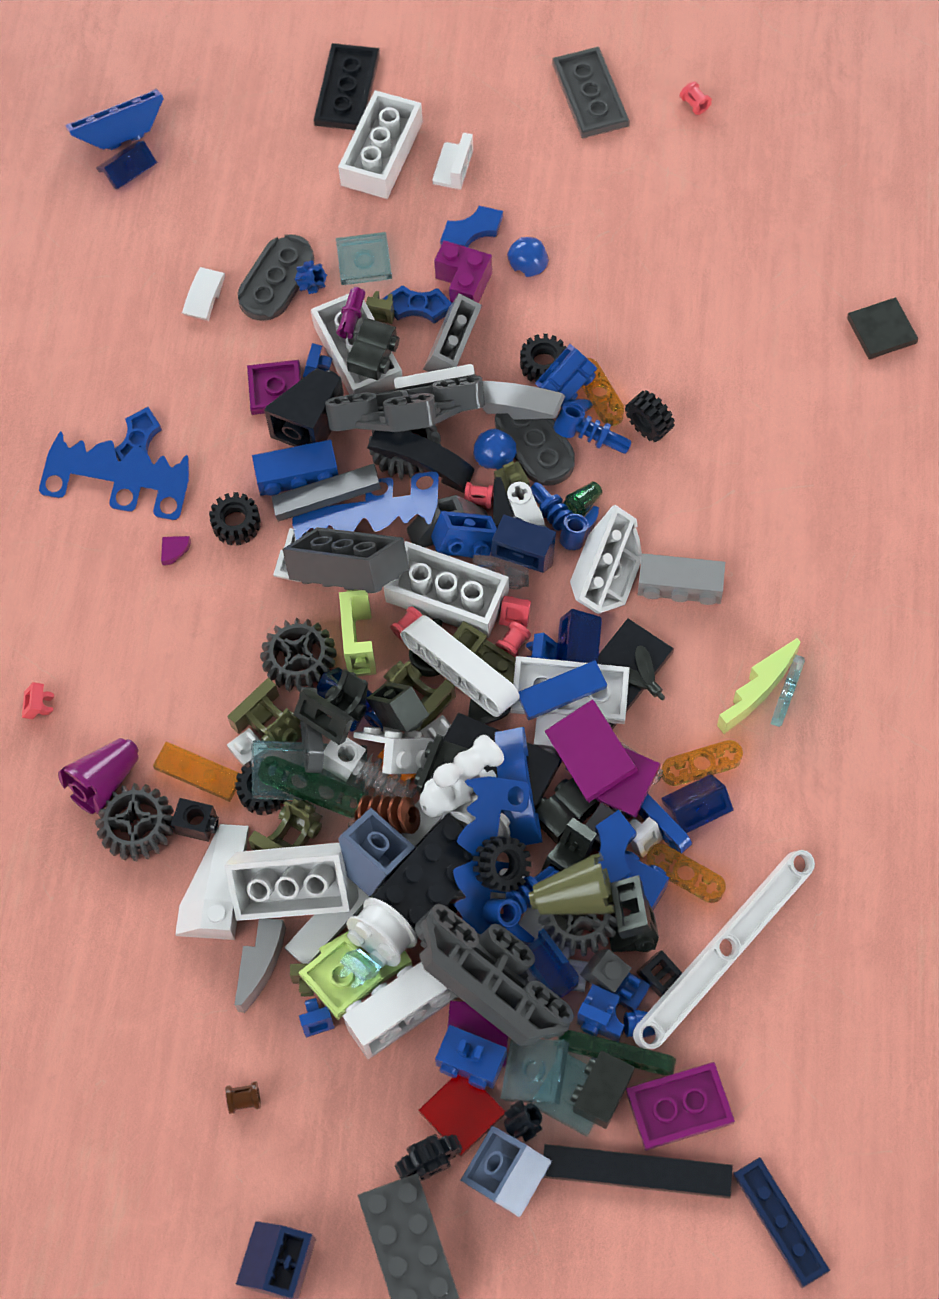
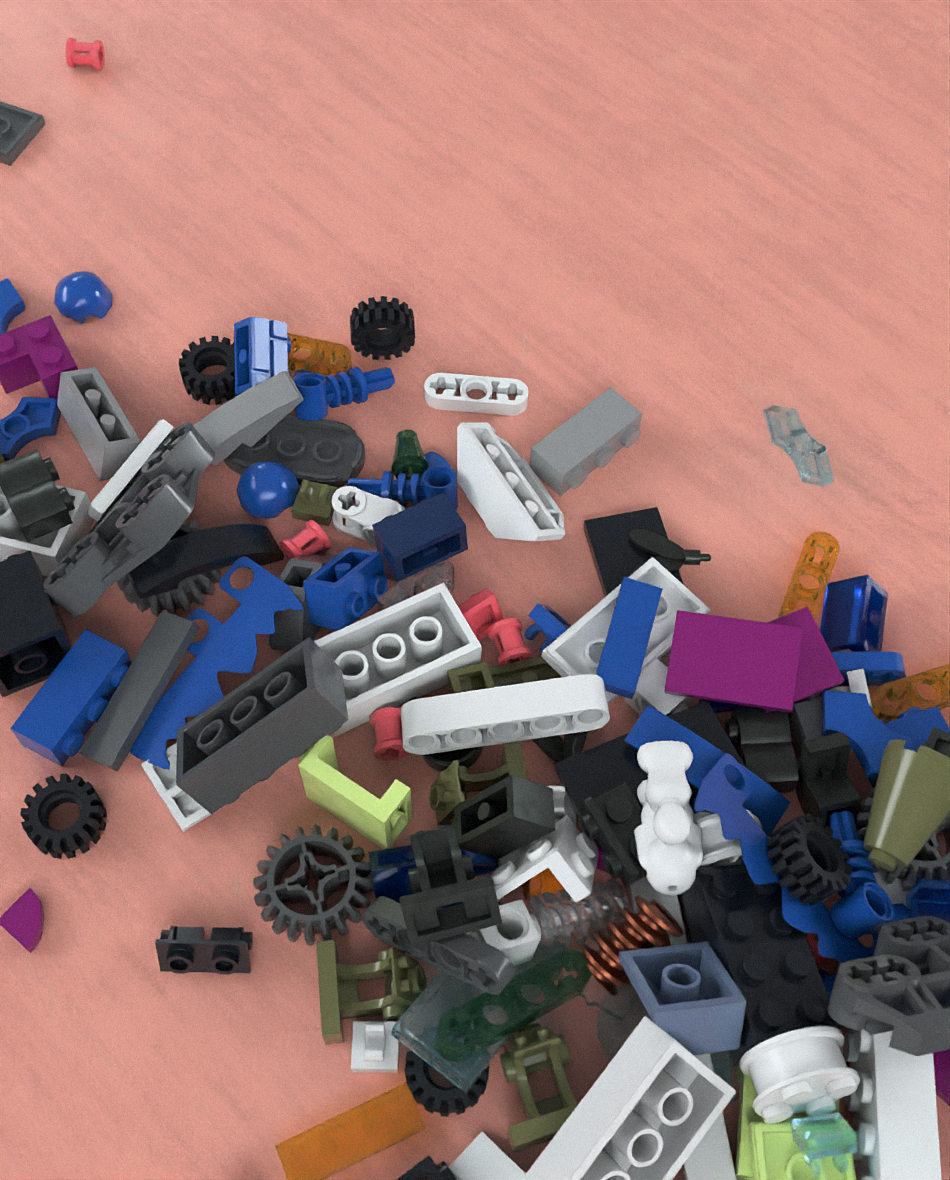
camera: 55 degrees left, 5 degrees down
(219, 628) = (185, 951): none -> black hinge
(501, 502) = (341, 530): black slope -> none
(579, 637) = (566, 582): clear blue panel -> none
(661, 510) = (465, 383): none -> white beam
(763, 680) = (767, 459): yellowish green slope -> none
(882, 328) = (477, 107): pearl dark grey tile -> none

